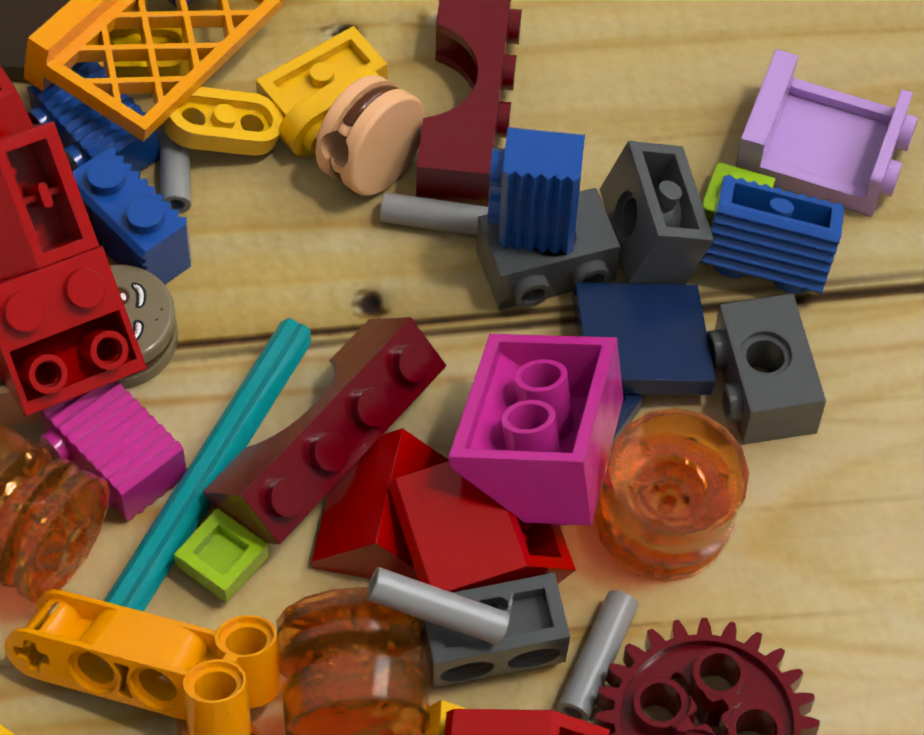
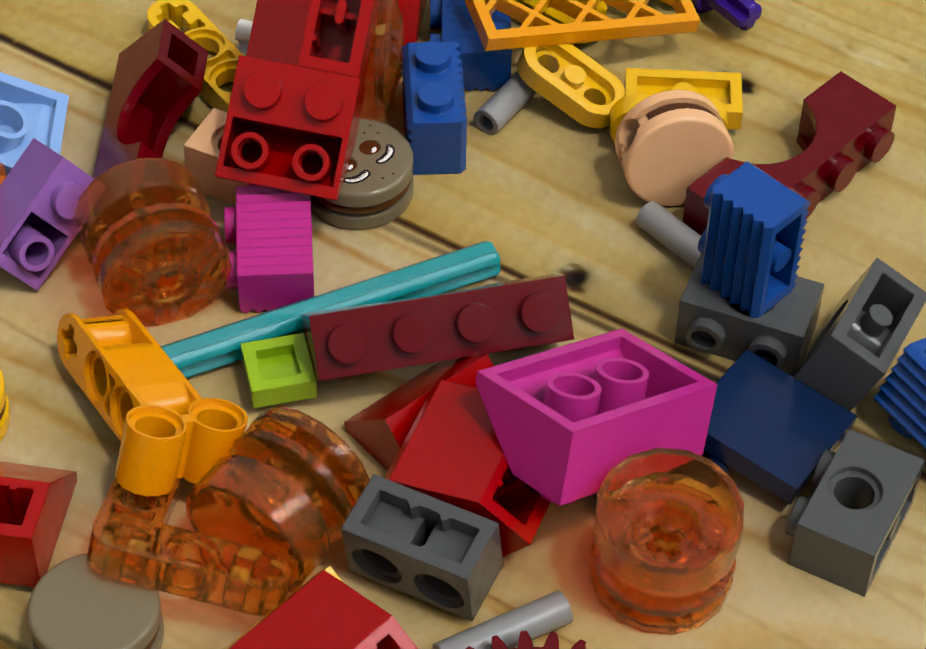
camera: 40 degrees right, 10 degrees down
(437, 606) = (371, 477): light grey piece -> none

